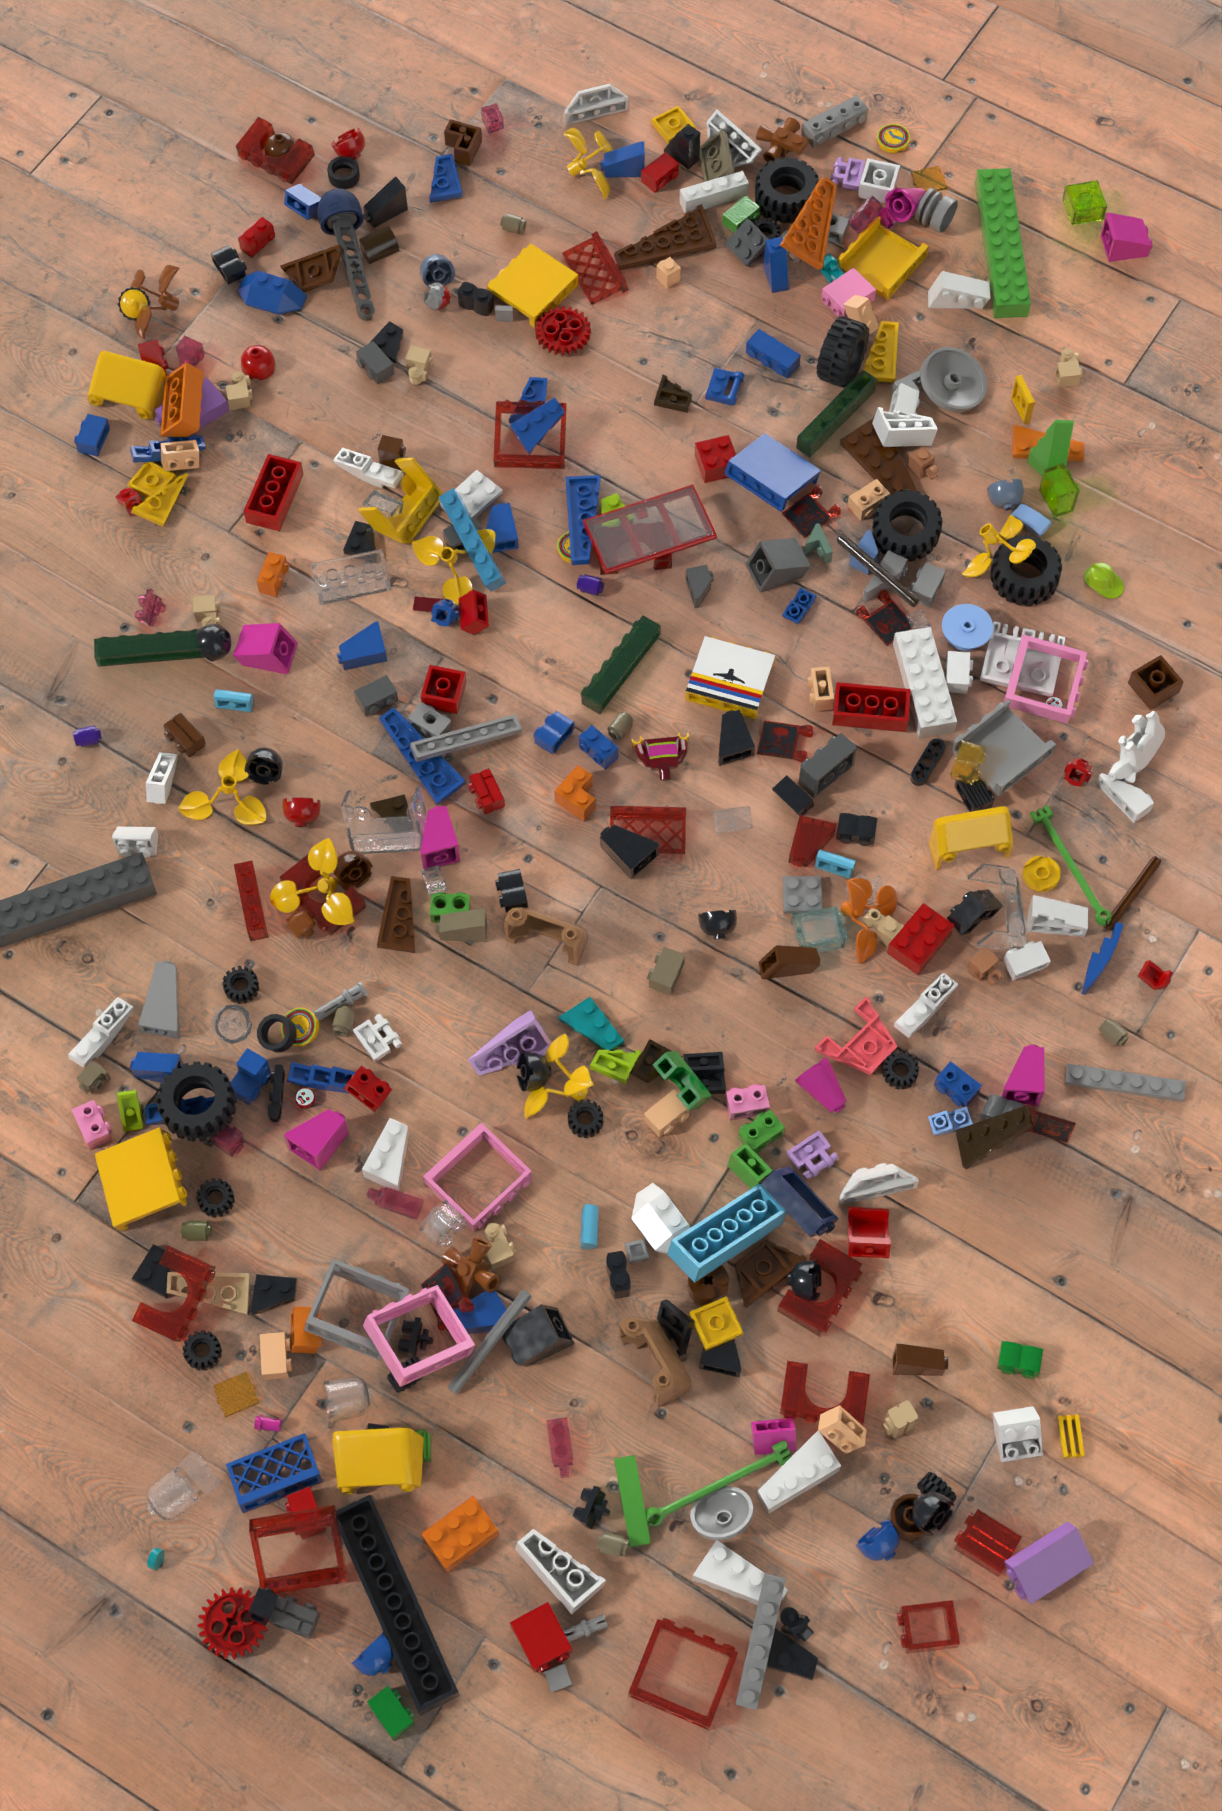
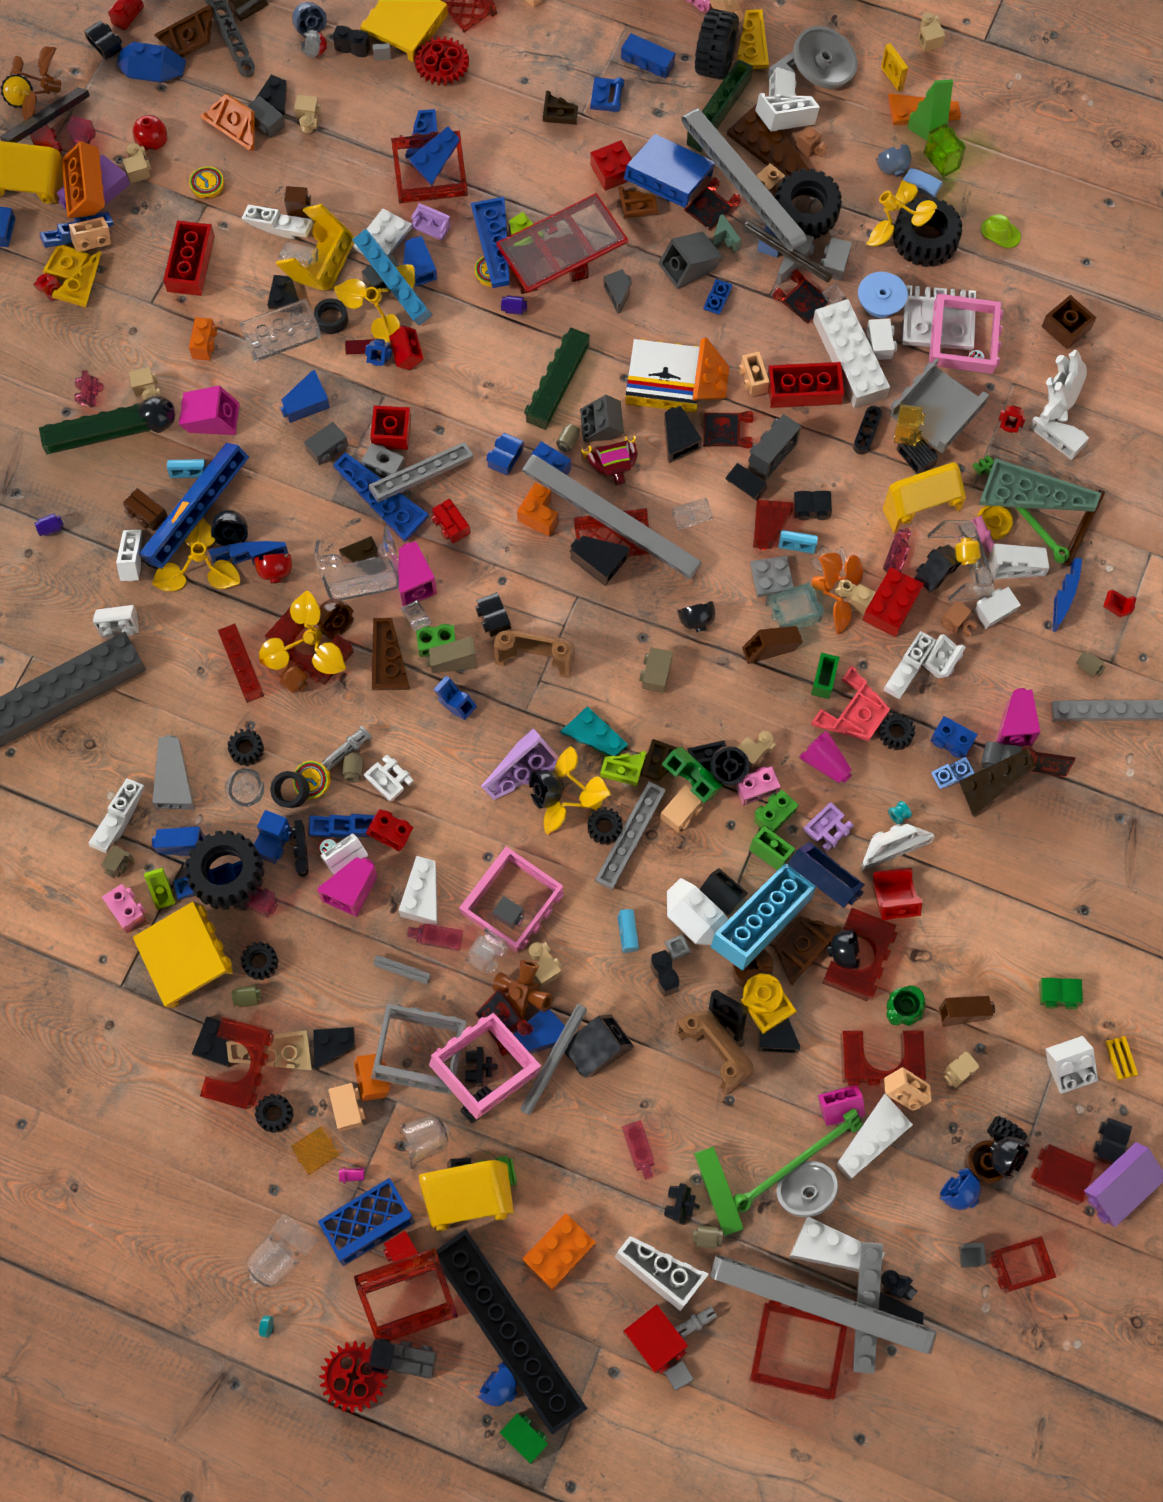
camera: 10 degrees left, 5 degrees up
(157, 332) = (45, 115): none -> black tile
(233, 738) = (194, 505): none -> blue brick
(278, 791) = (247, 550): none -> blue slope
(305, 419) = (206, 182): none -> tile
(318, 1103) = (343, 853): none -> white brick
(342, 361) = (233, 120): none -> orange wing
(355, 1229) = (402, 969): none -> light grey axle
(404, 557) = (328, 304): none -> black tyre
(456, 968) = (453, 699): none -> blue brick
(471, 1189) = (508, 913): none -> dark grey brick
(522, 490) = (431, 221): none -> lavender hinge
(609, 1132) = (630, 836): none -> light grey plate
(648, 810) = (611, 516): none -> light grey beam
(658, 712) = (602, 419): none -> dark grey slope
(693, 1202) = (723, 891): none -> black panel
(712, 1309) = (763, 993): none -> yellow tile
(716, 1629) = (823, 1304): none -> light grey beam
(721, 1076) = (729, 765): none -> black cylinder
(734, 500) = (637, 203): none -> dark orange wing
(749, 1070) = (756, 751): none -> tan brick
(776, 682) = (711, 373): none -> orange wing
(836, 1002) = (825, 675): none -> green piece
(845, 492) = (744, 179): none -> light grey beam
(857, 1347) = (905, 1005): none -> green piece
(878, 1608) = (972, 1255): none -> dark grey panel
(888, 1152) = (900, 812): none -> teal wheel
(936, 888) = (898, 550): none -> clear pink hinge
(962, 1002) = (943, 657): none -> white bracket
(1004, 899) = (967, 551): none -> yellow head
(1026, 882) = (984, 533): none -> bright pink pin
(1045, 1517) = (1112, 1140): none -> black brick
(1077, 844) = (1023, 488): none -> sand green wing

